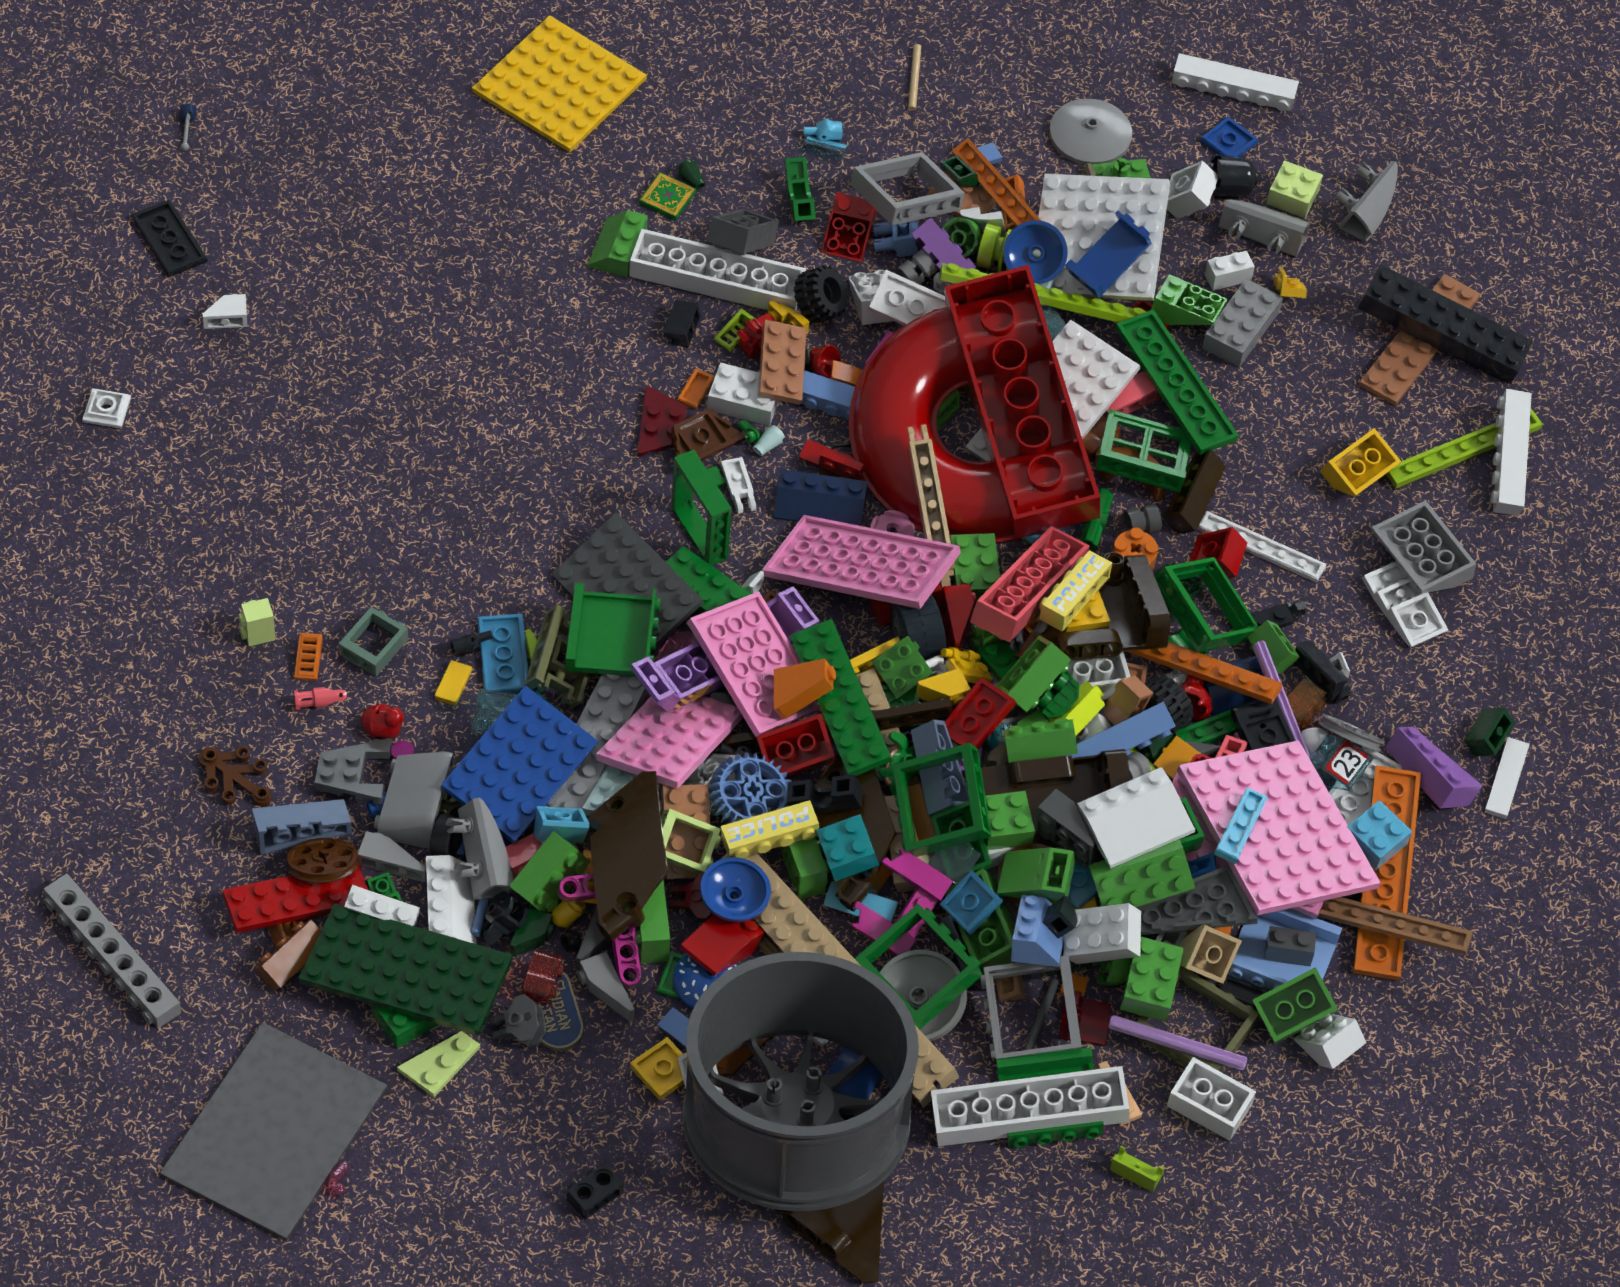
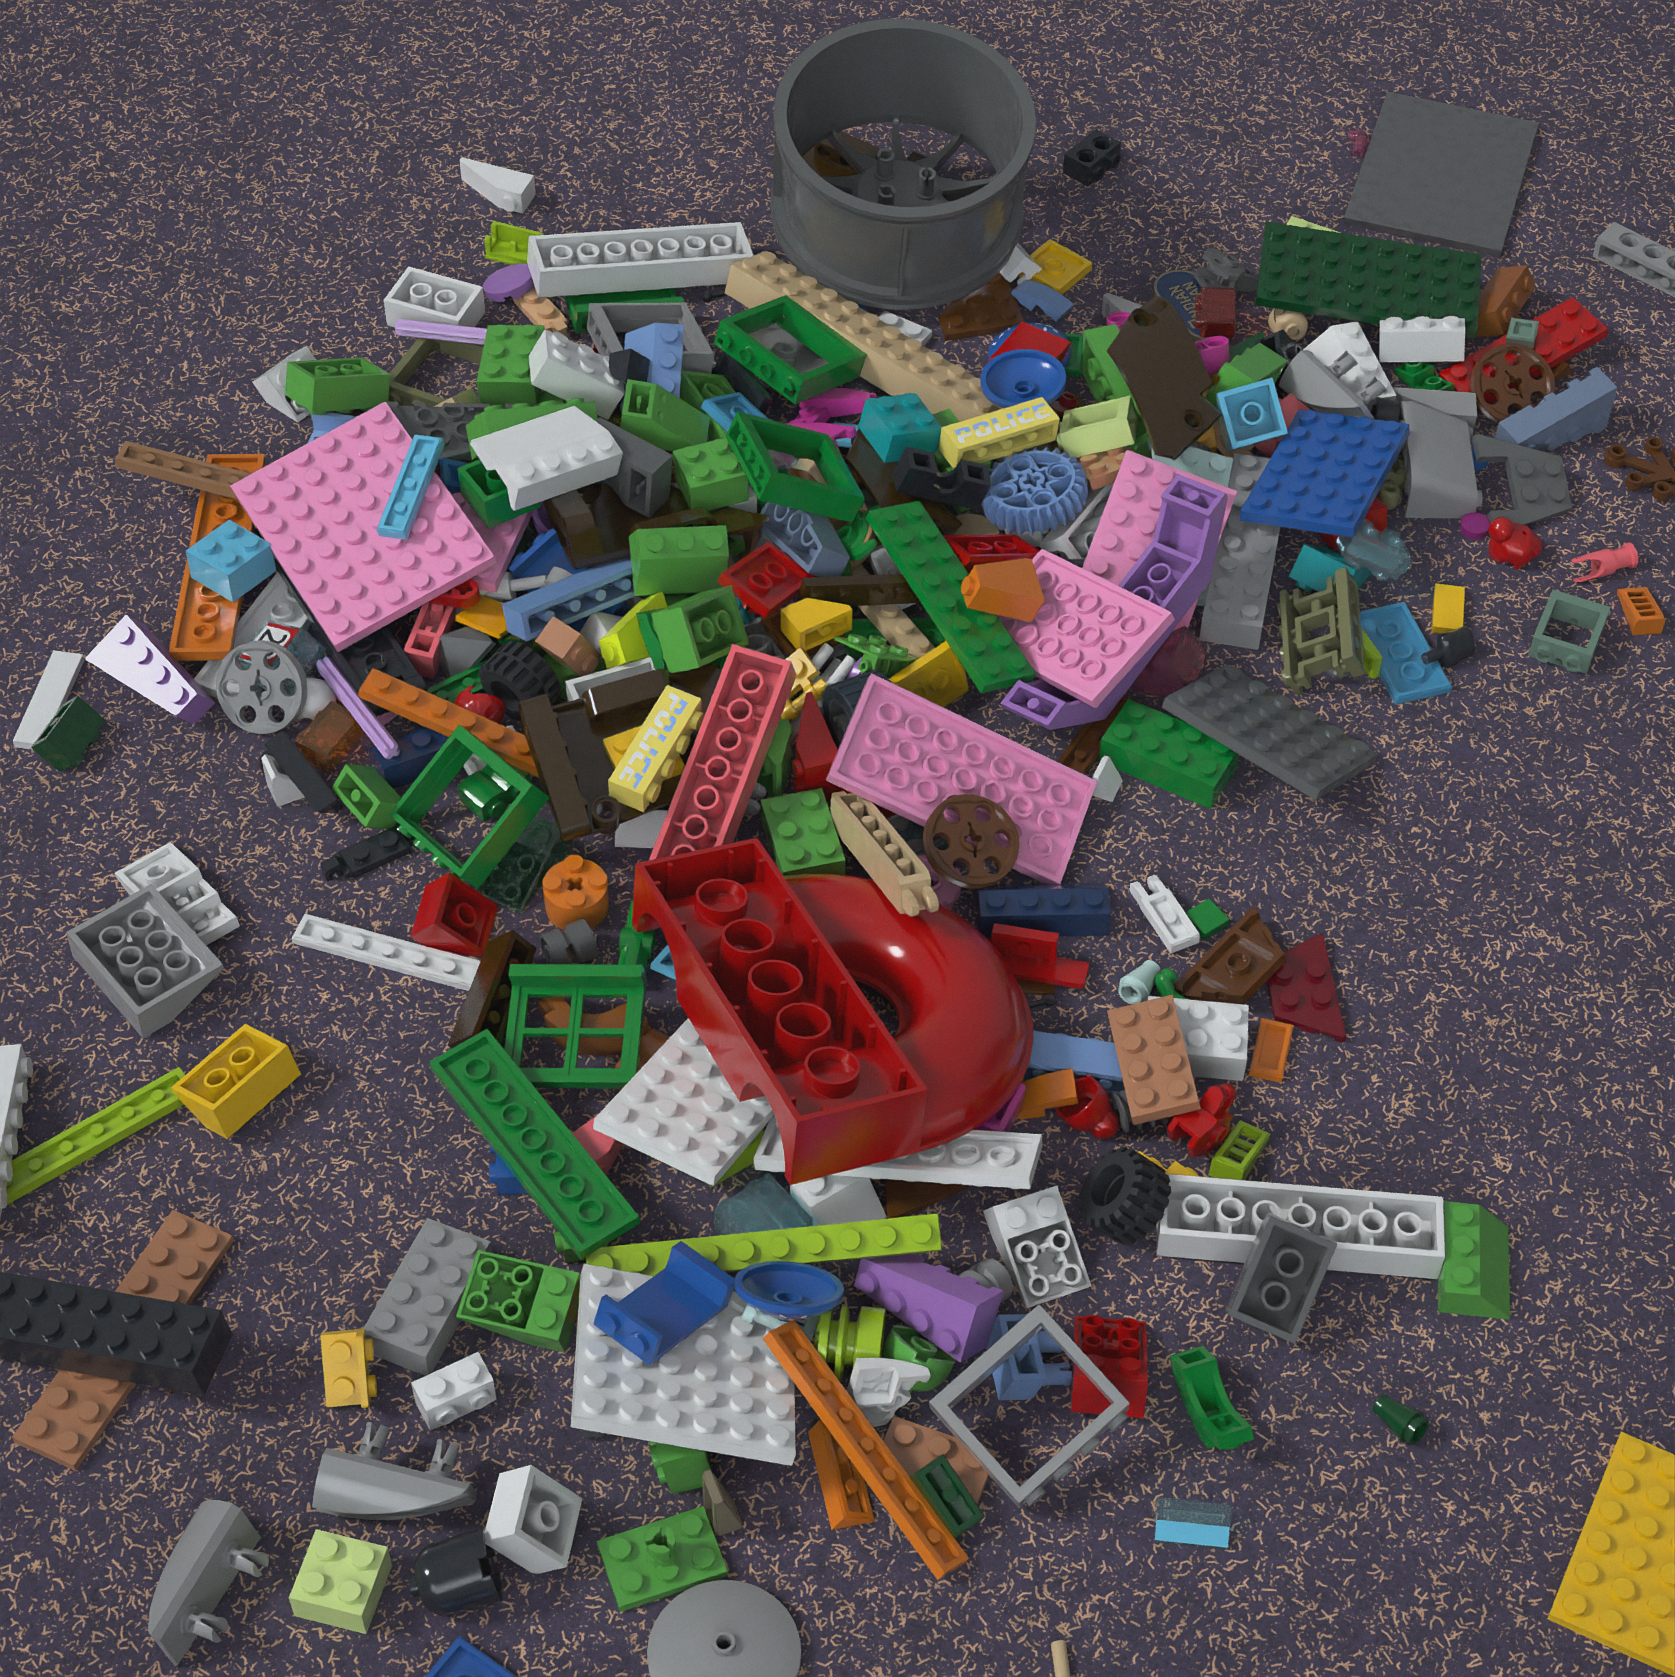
camera: 175 degrees right, 5 degrees down
(296, 899) = (1522, 332): none -> sand green tile
(610, 631) = (1271, 646): green panel -> none
(667, 196) = (1427, 1376): tile -> none
(682, 323) = (1326, 1141): black hinge -> none
(709, 537) = (1186, 752): green window -> none
(825, 130) = (1199, 1554): medium azure piece -> none
(855, 520) = (962, 851): none -> reddish brown wedge
(991, 153) = (902, 1567): medium blue tile -> none
(1144, 1244) = (500, 185): none -> white slope
(1146, 1125) = (508, 281): none -> medium lavender tile

